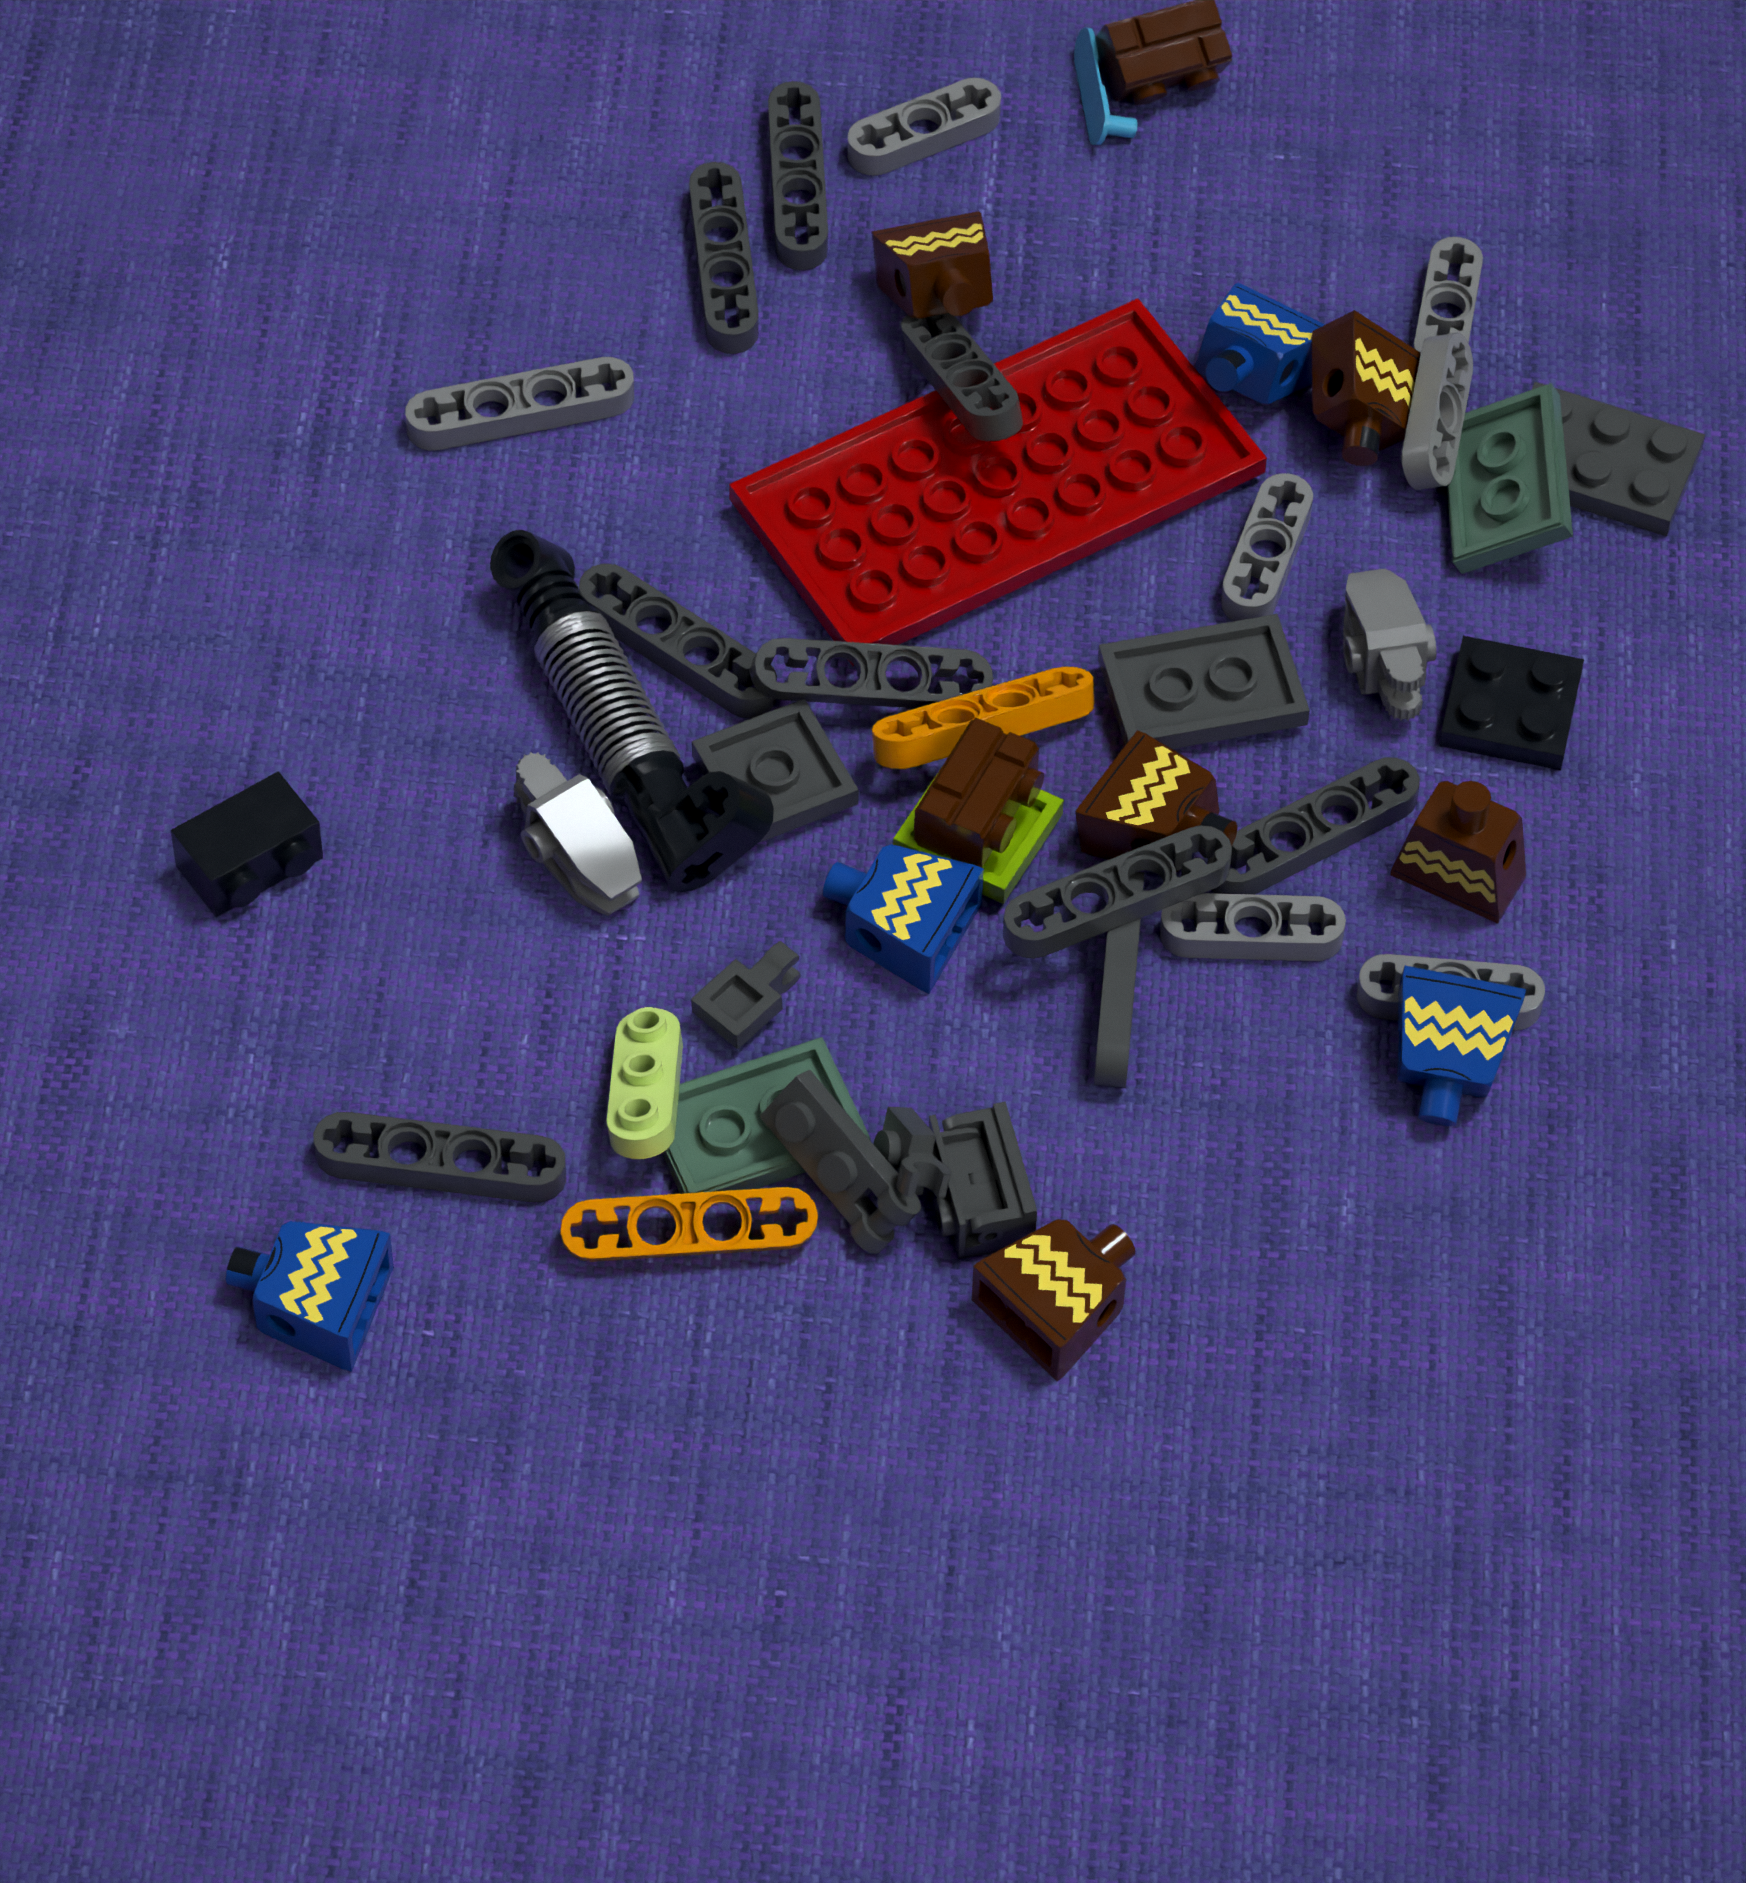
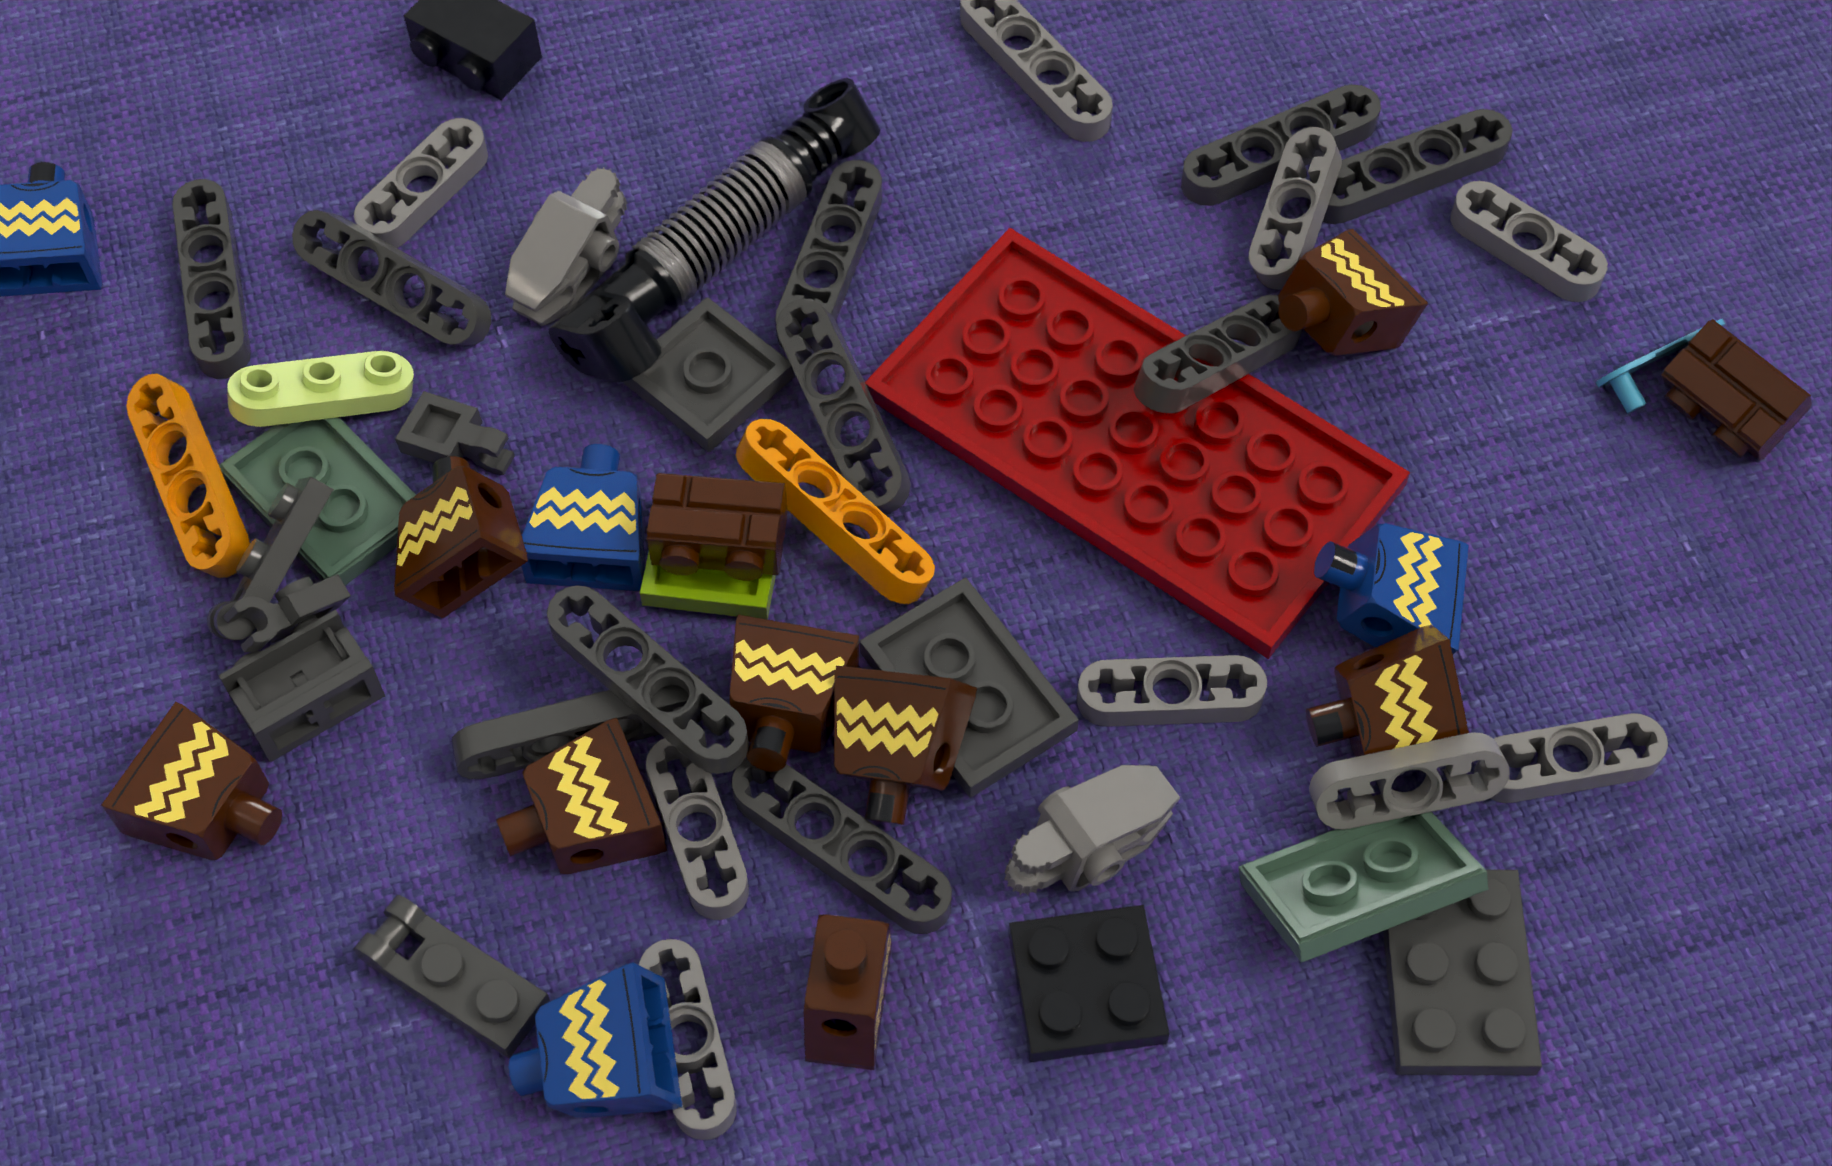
camera: 70 degrees right, 5 degrees up
(411, 972) = (425, 160): none -> light grey beam
(533, 1000) = (389, 281): none -> dark grey beam
(857, 284) = (1288, 184): none -> light grey beam
(884, 1004) = (455, 539): none -> reddish brown torso
(1201, 991) = (587, 805): none -> reddish brown torso
(1248, 734) = (898, 733): none -> reddish brown torso
(1322, 1147) = (453, 977): none -> dark grey plate

